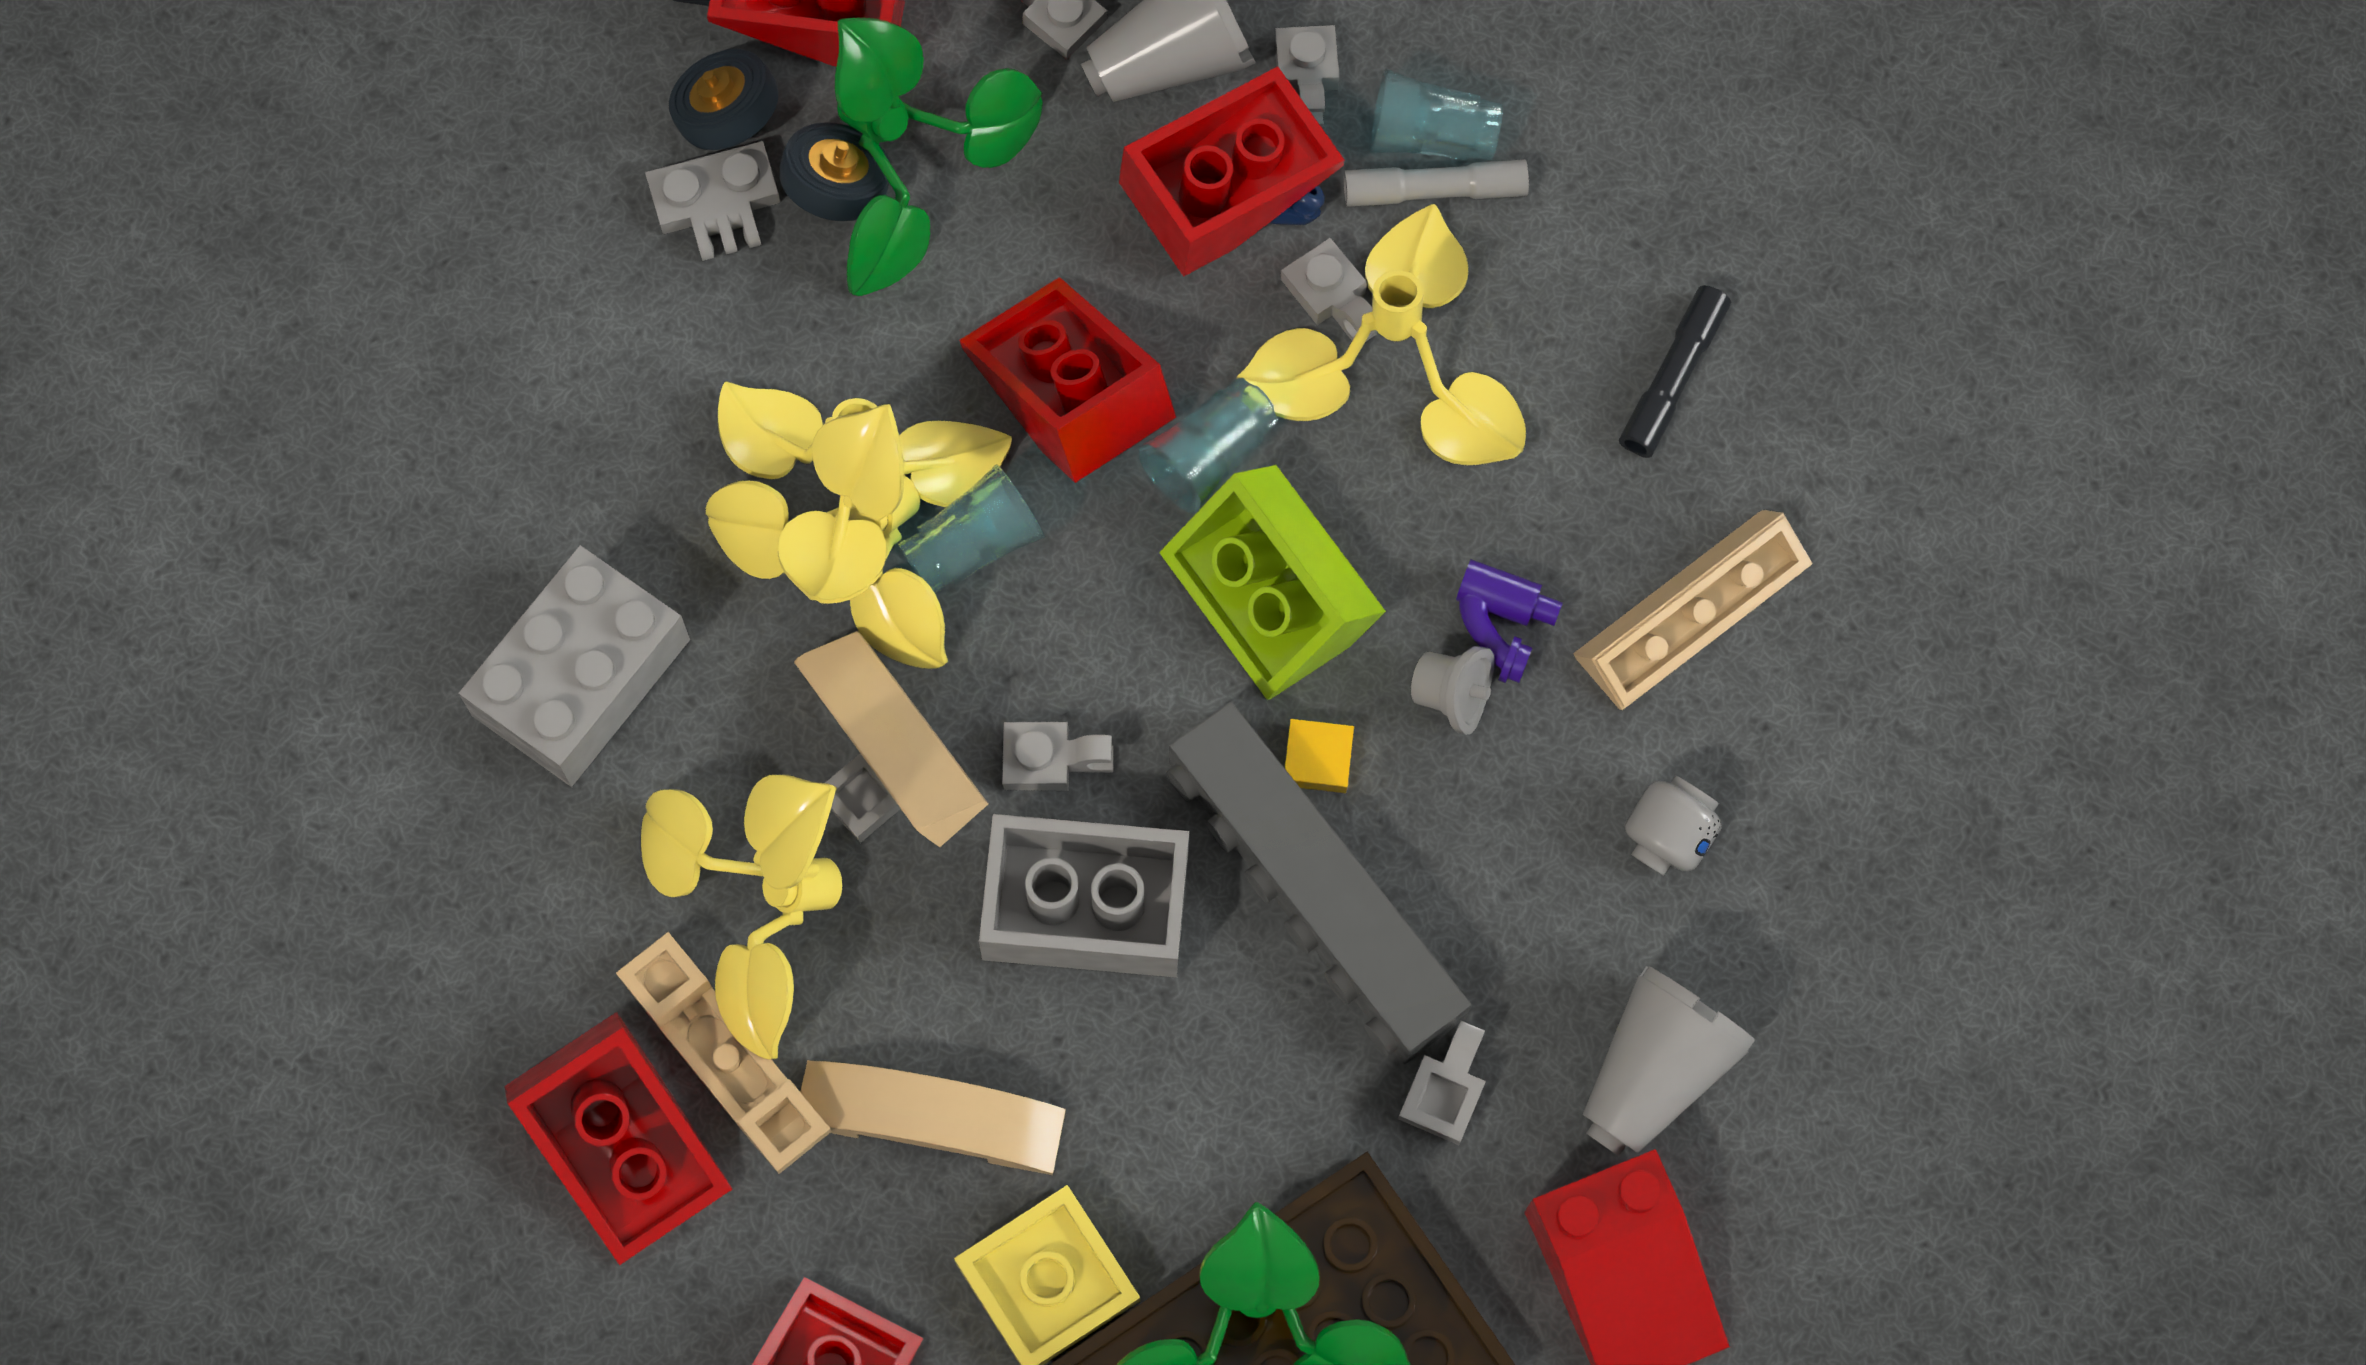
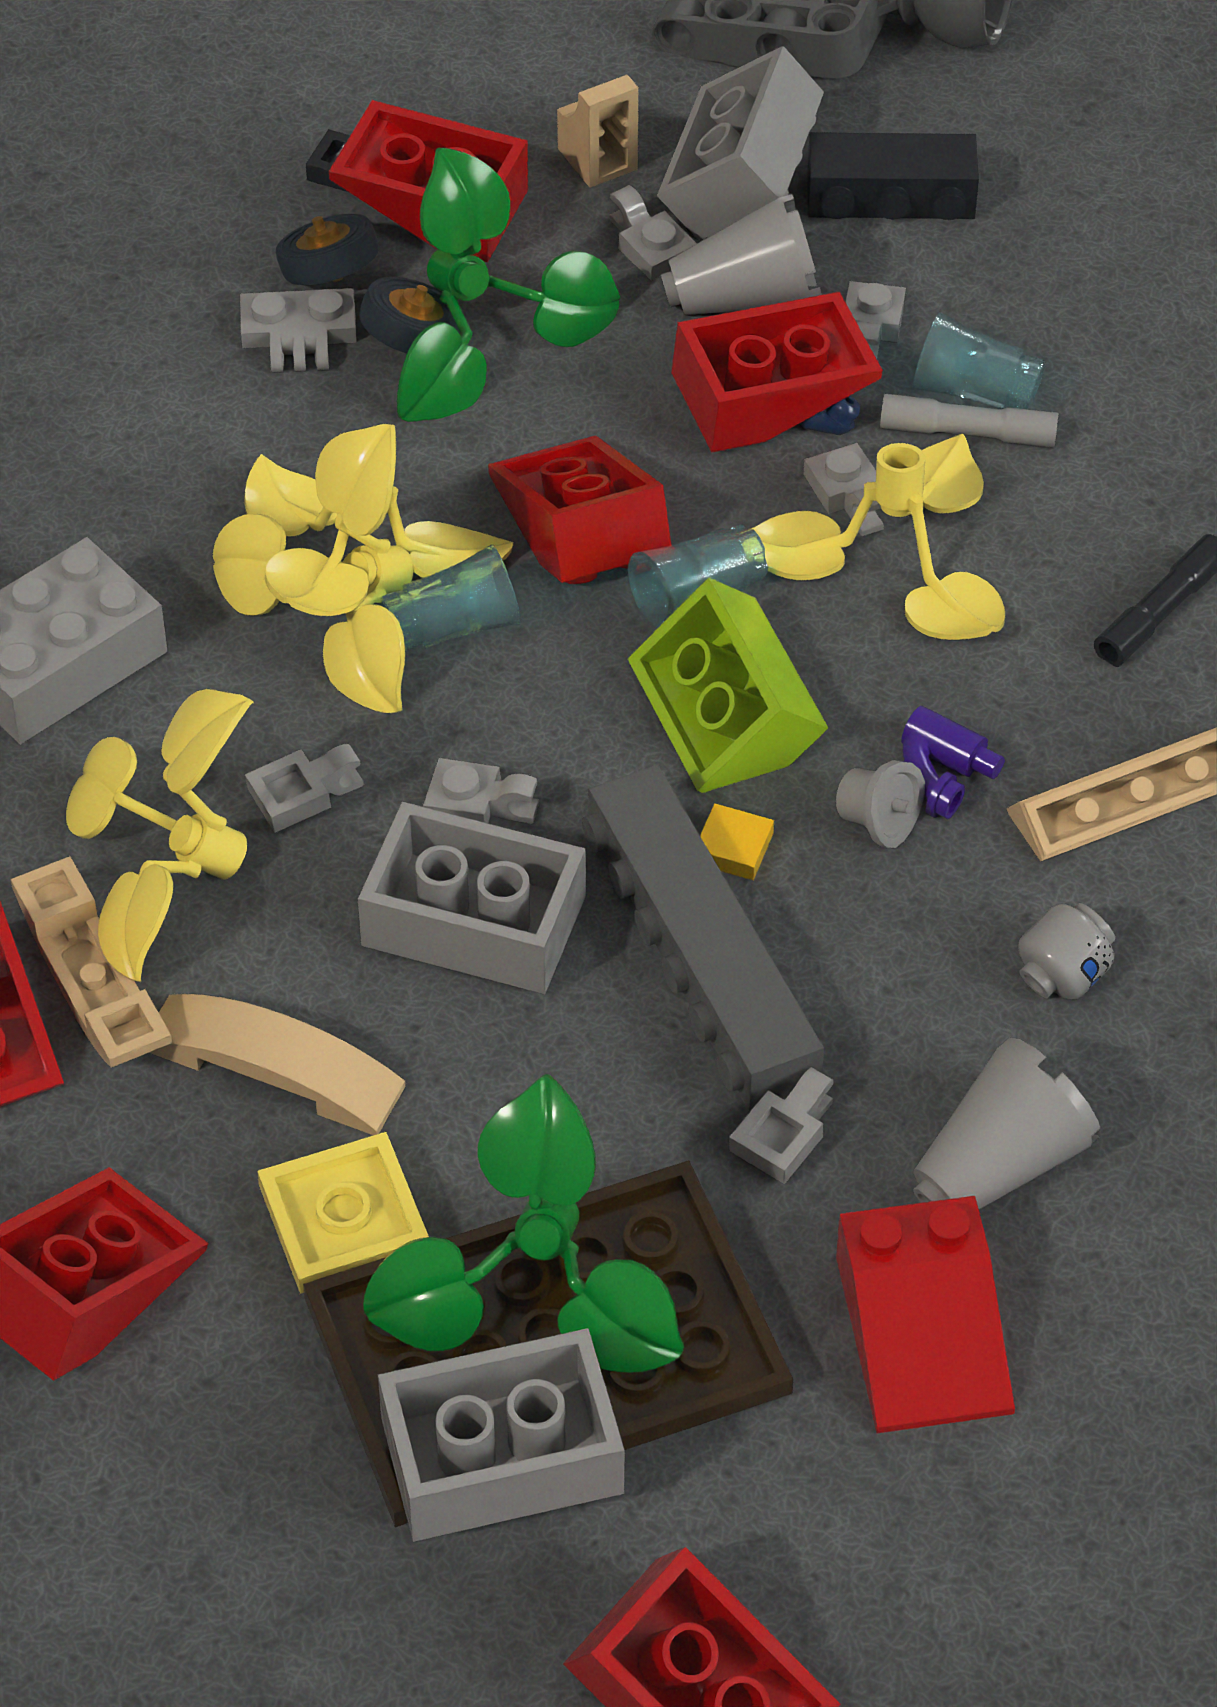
camera: 15 degrees right, 20 degrees down
(892, 736) = (330, 736): tan slope -> none

